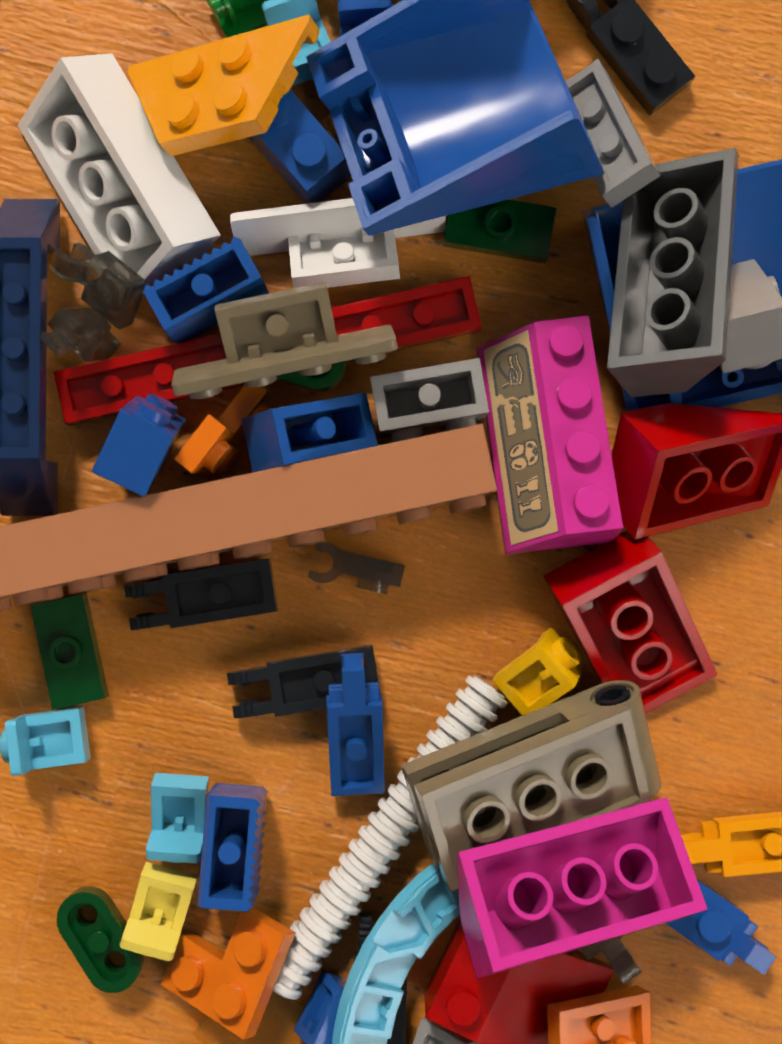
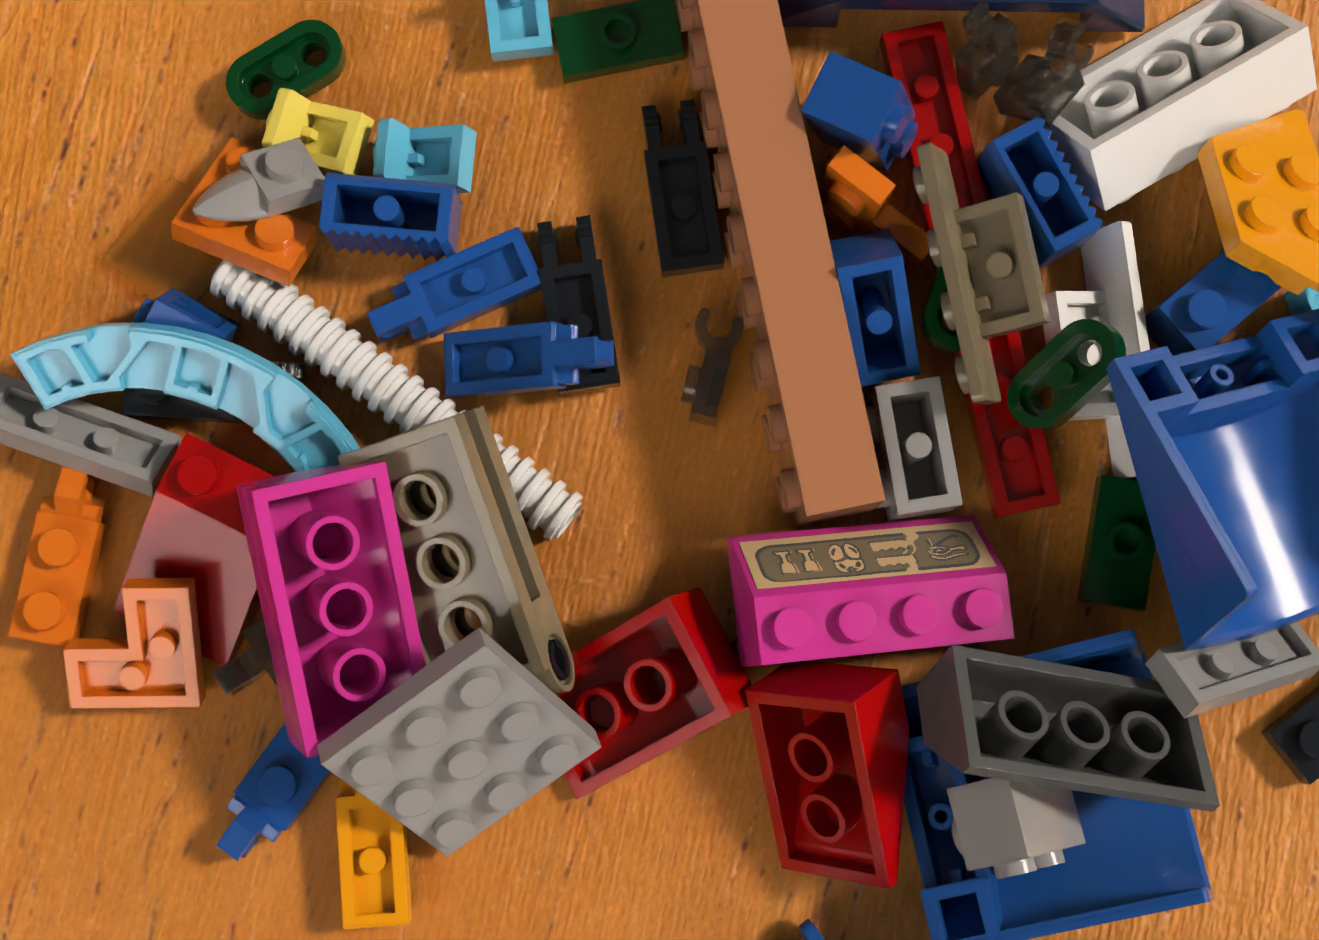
camera: 85 degrees right, 5 degrees down
(208, 957) = (265, 185): none -> light grey plate
(292, 783) = (459, 288): none -> blue hinge
(364, 267) = (1067, 371): none -> dark green plate
(541, 673) = (585, 583): yellow bracket -> none
(687, 779) = (459, 743): none -> light grey plate

